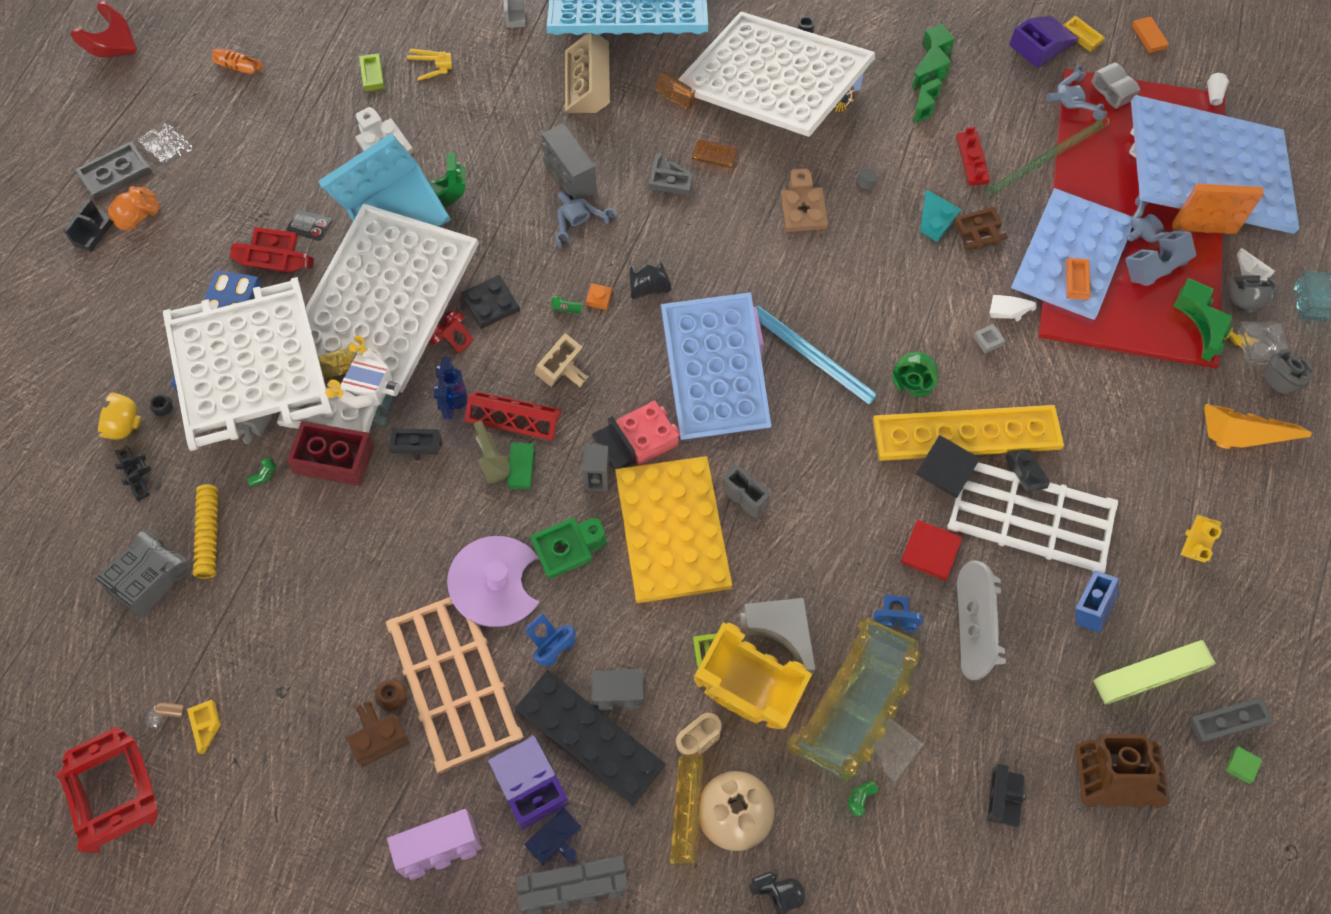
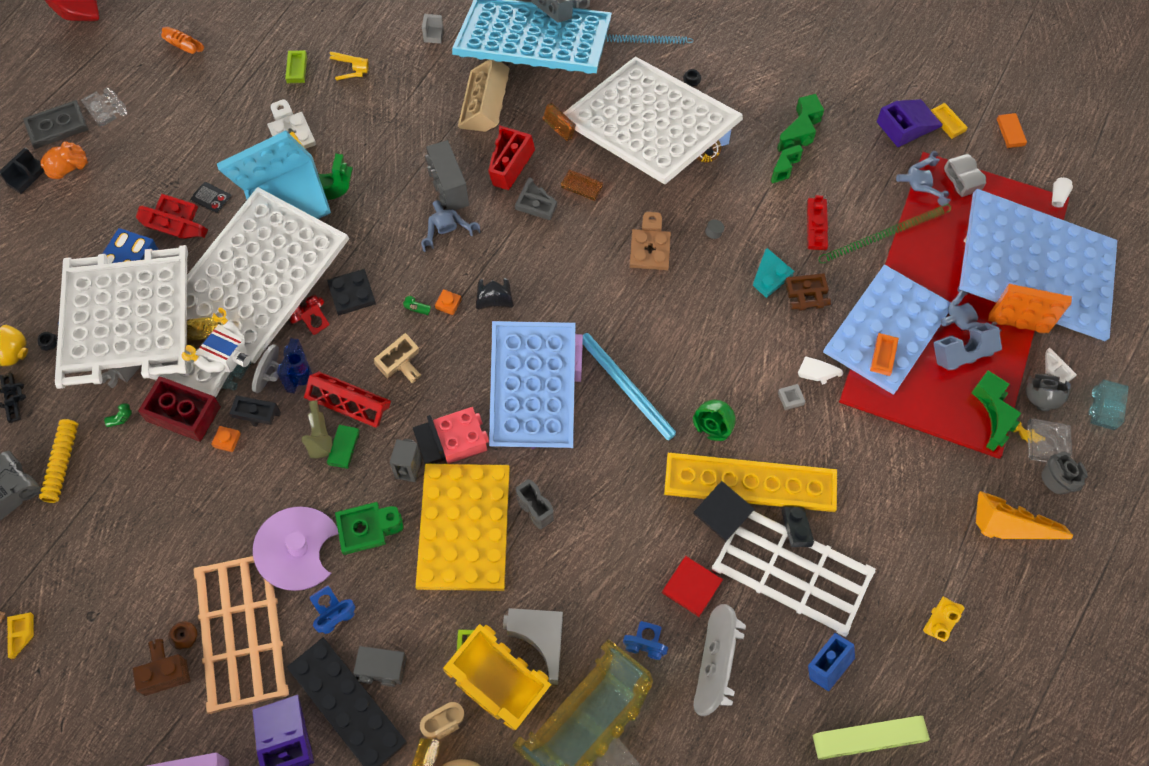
camera: 10 degrees right, 0 degrees up
(388, 478) = (226, 438): none -> orange plate
(418, 393) = (265, 368): none -> light grey shield
(631, 133) = (510, 156): none -> red wedge

